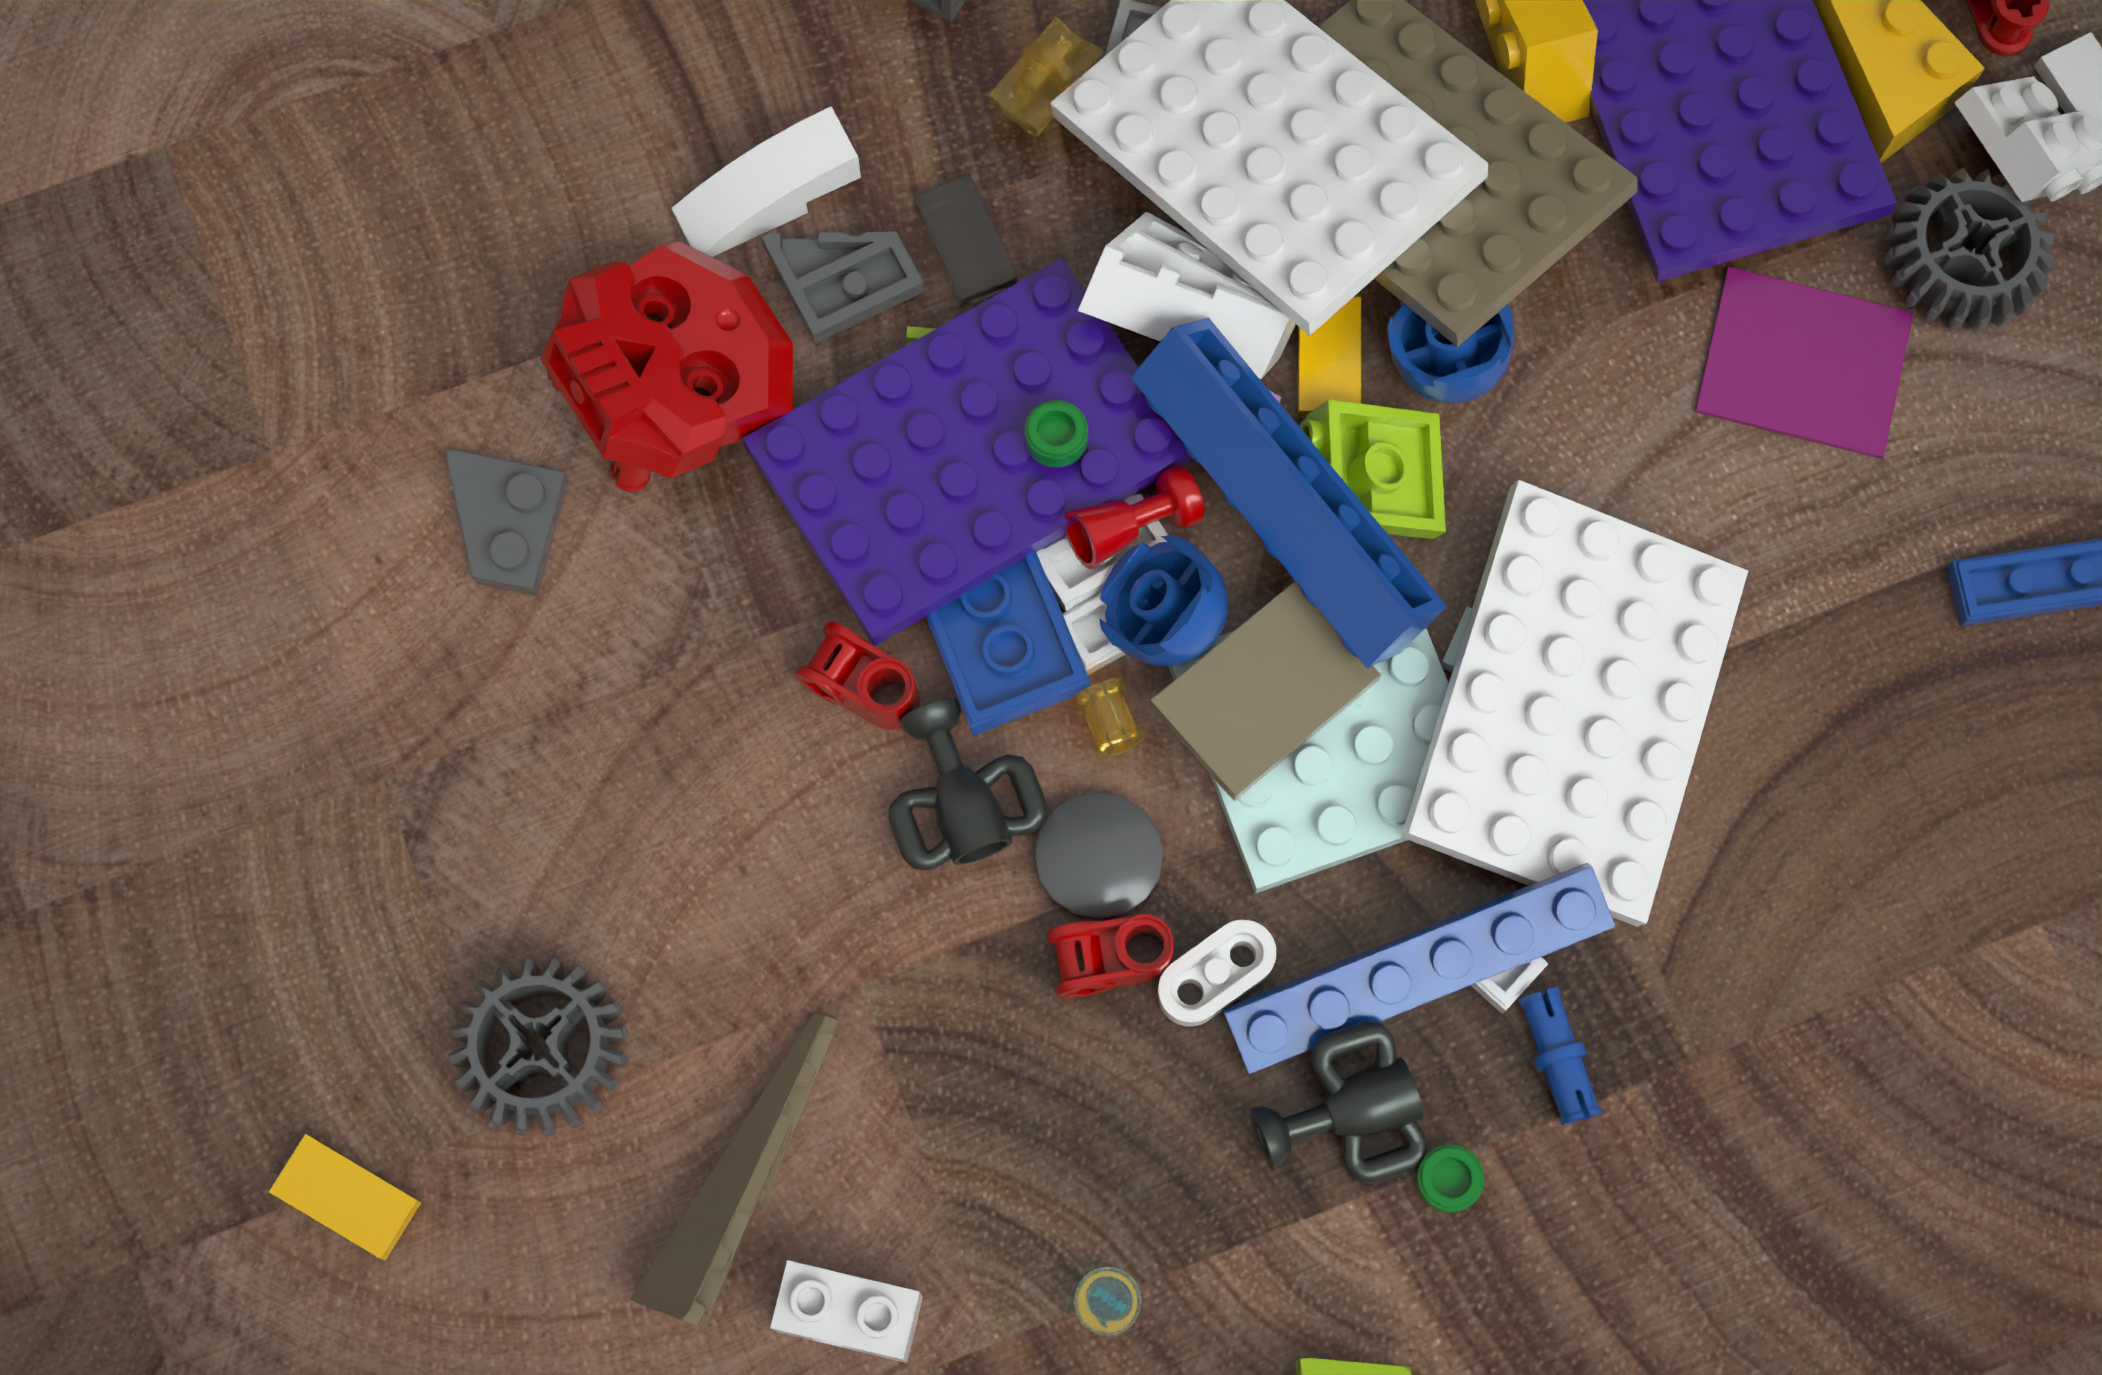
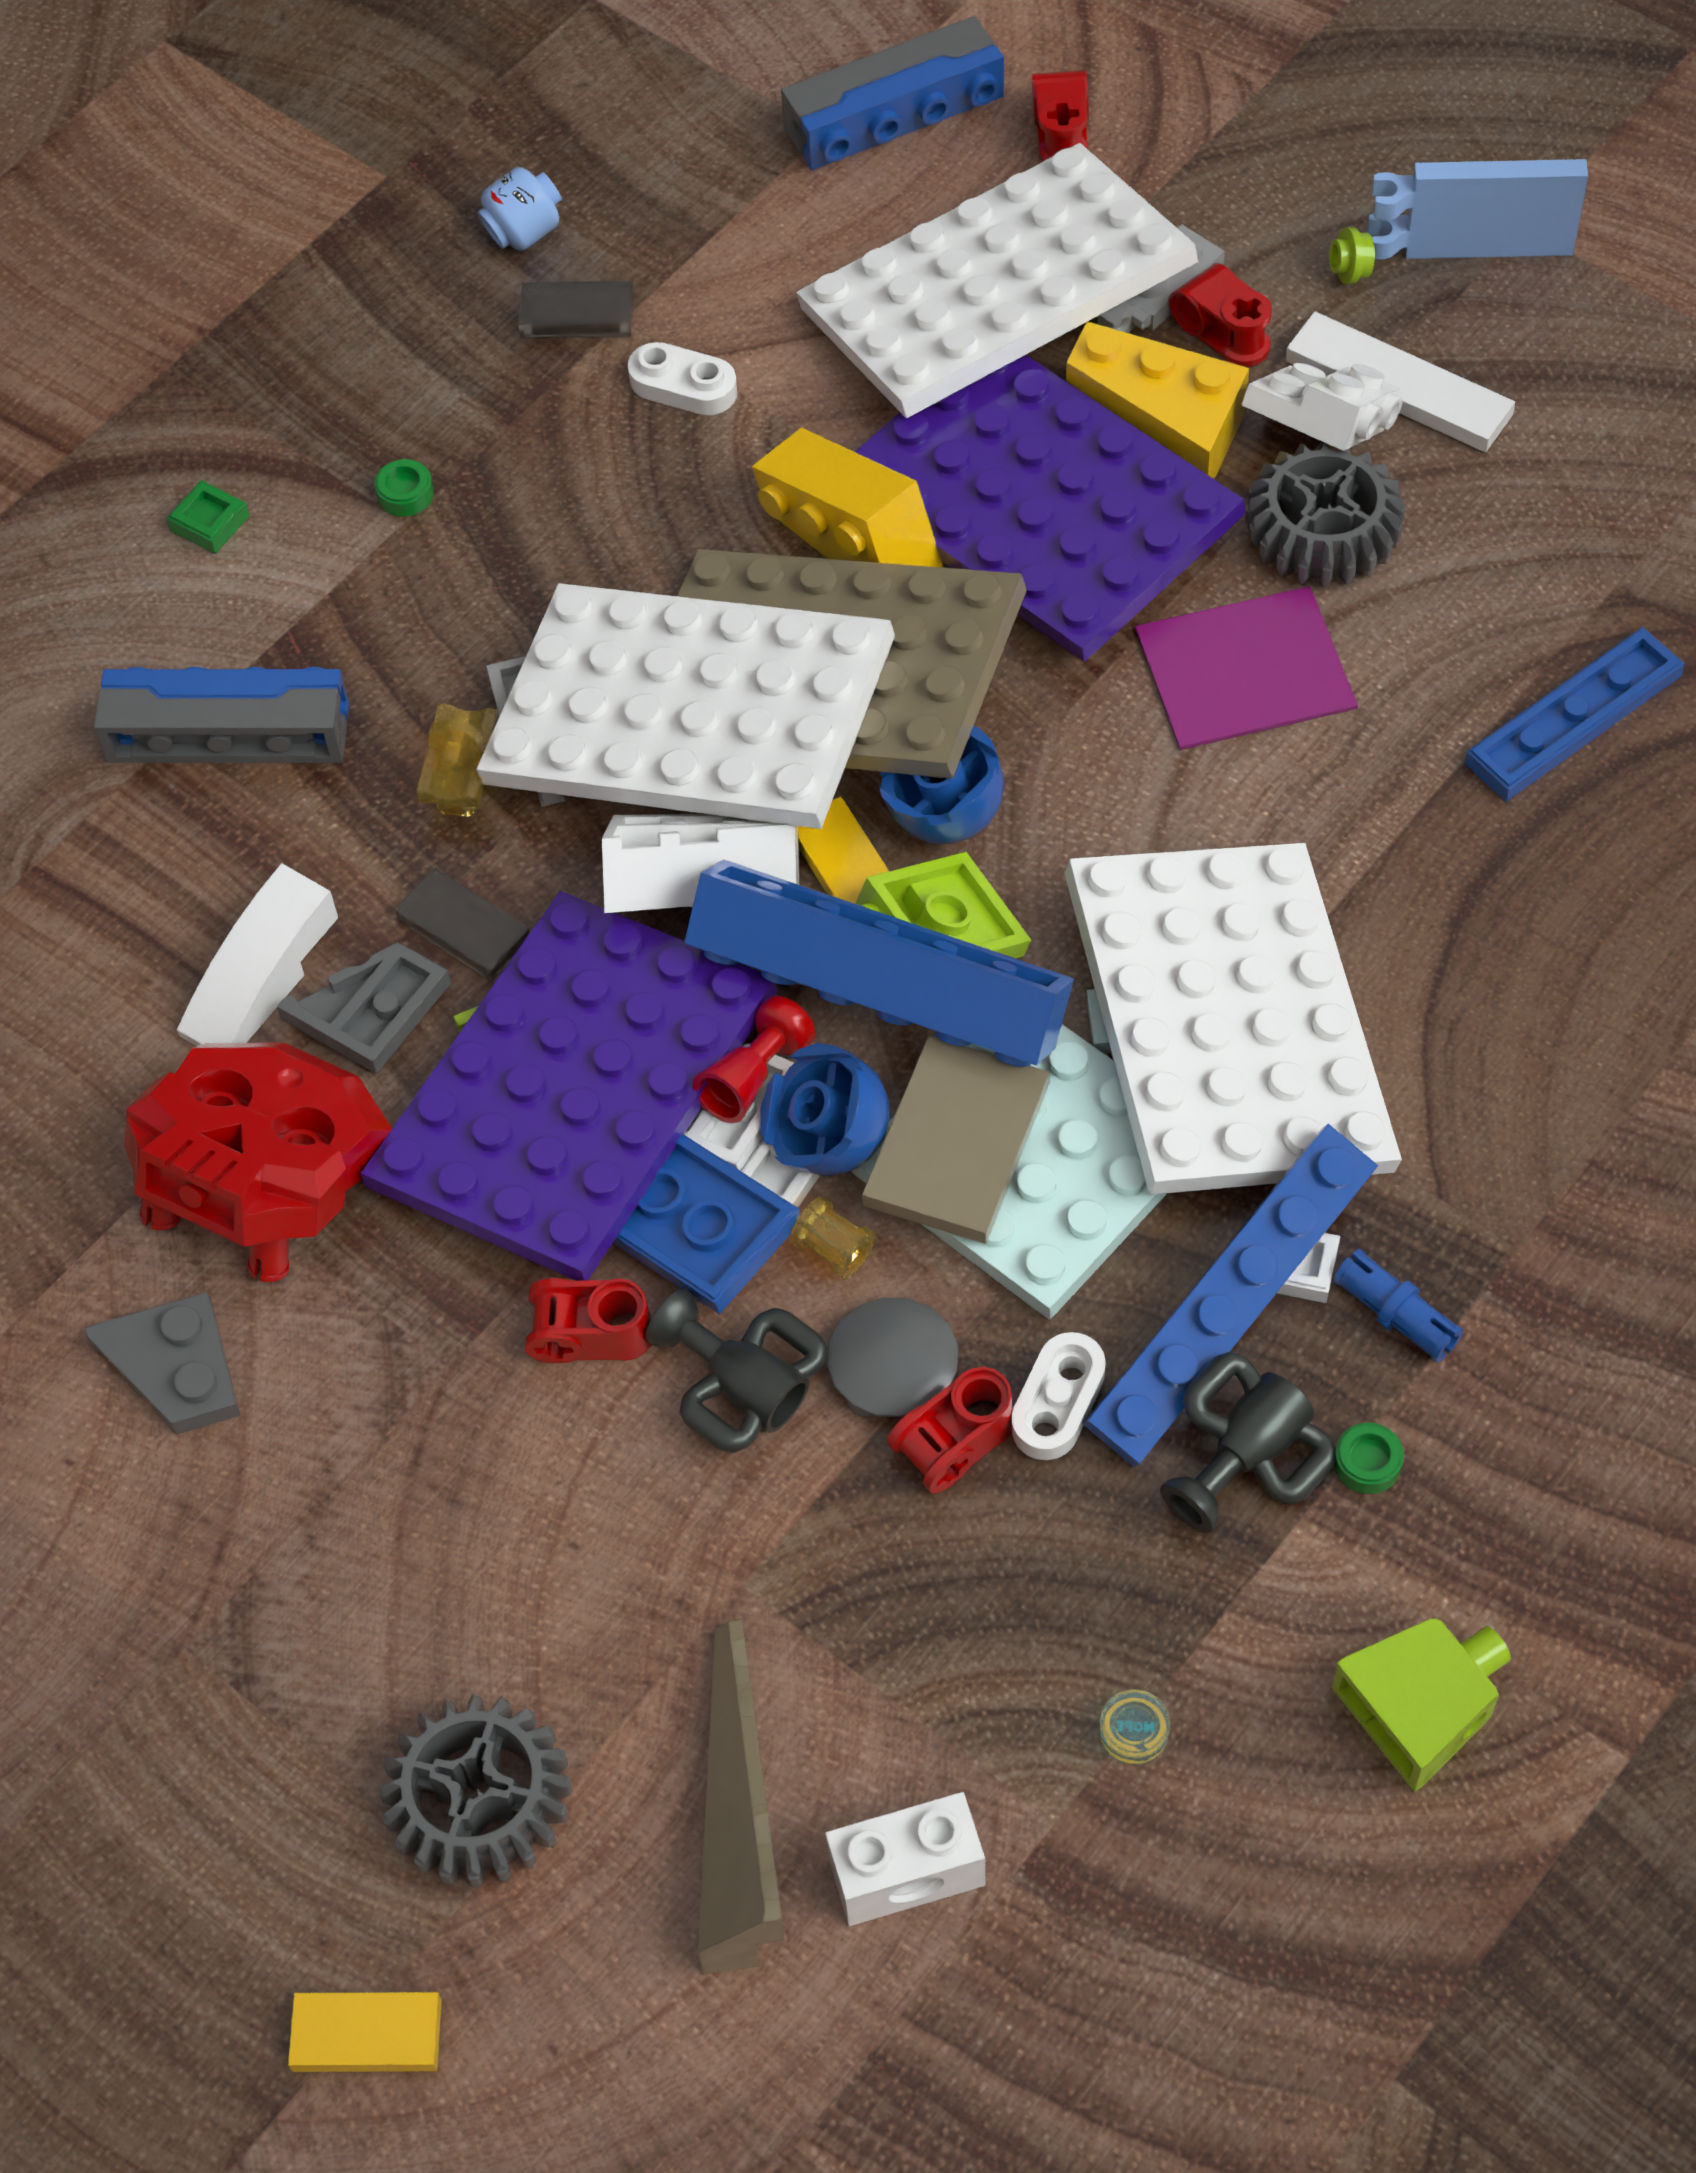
camera: 25 degrees left, 15 degrees down
(1056, 433) = (645, 1021): green tile -> none

